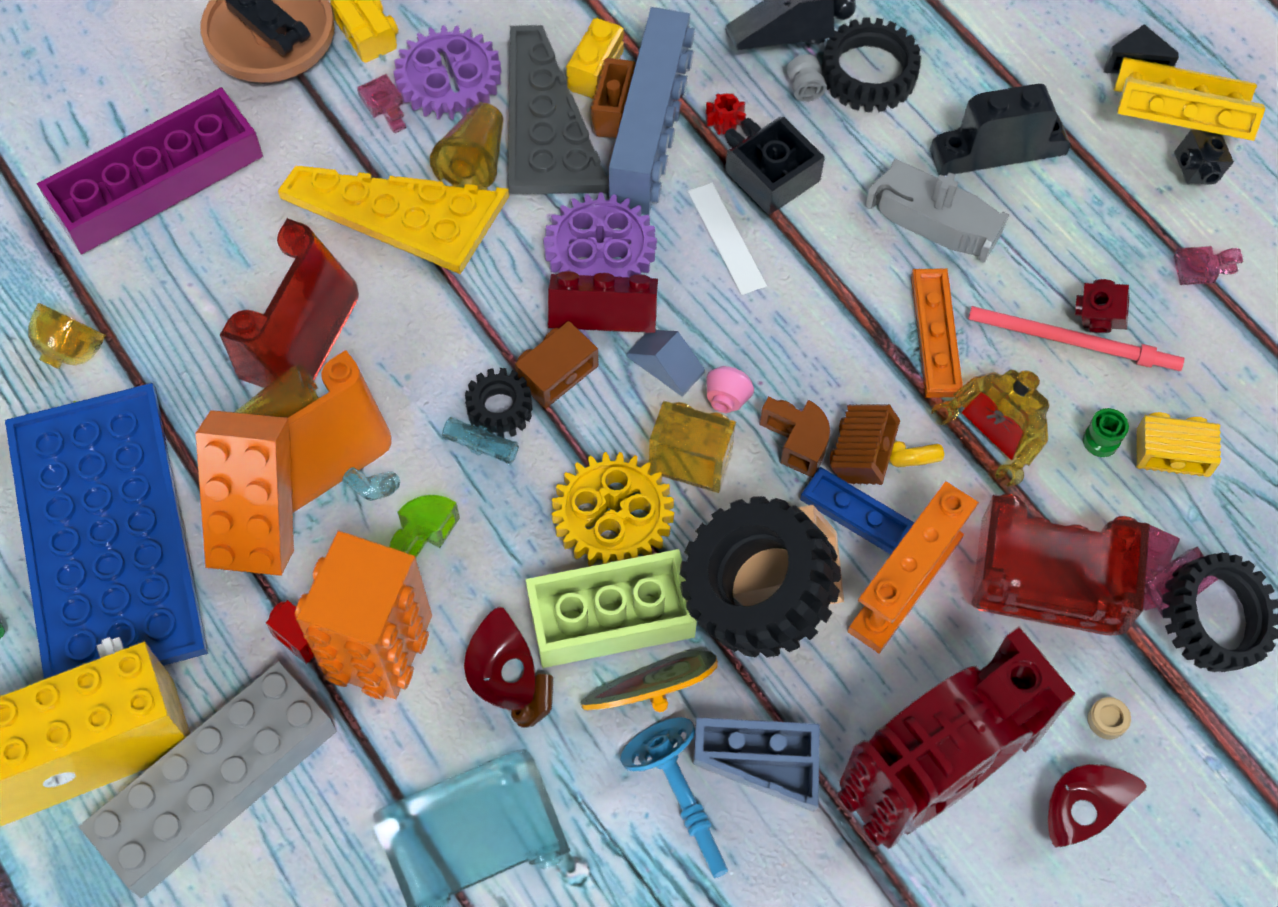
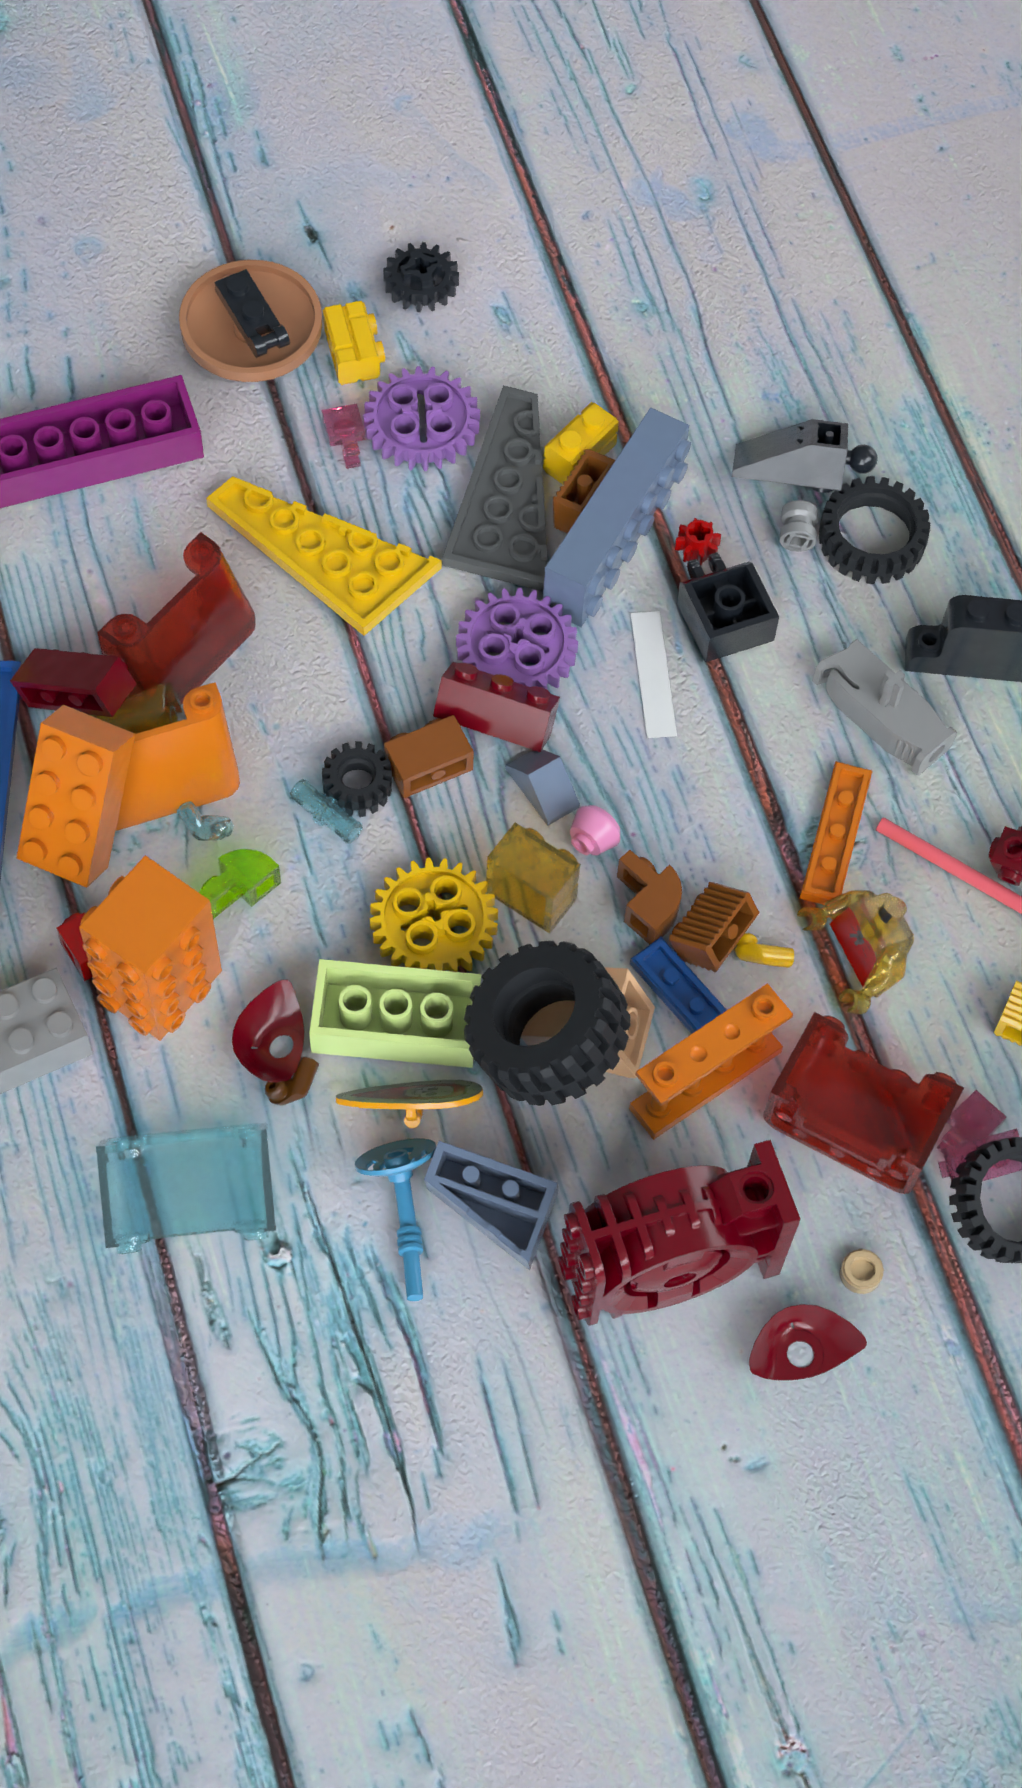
camera: 15 degrees right, 0 degrees up
(217, 384) = (73, 679): none -> dark red brick
(470, 149) = (416, 507): clear yellow cone -> none
(1105, 432) = (965, 994): green wheel -> none

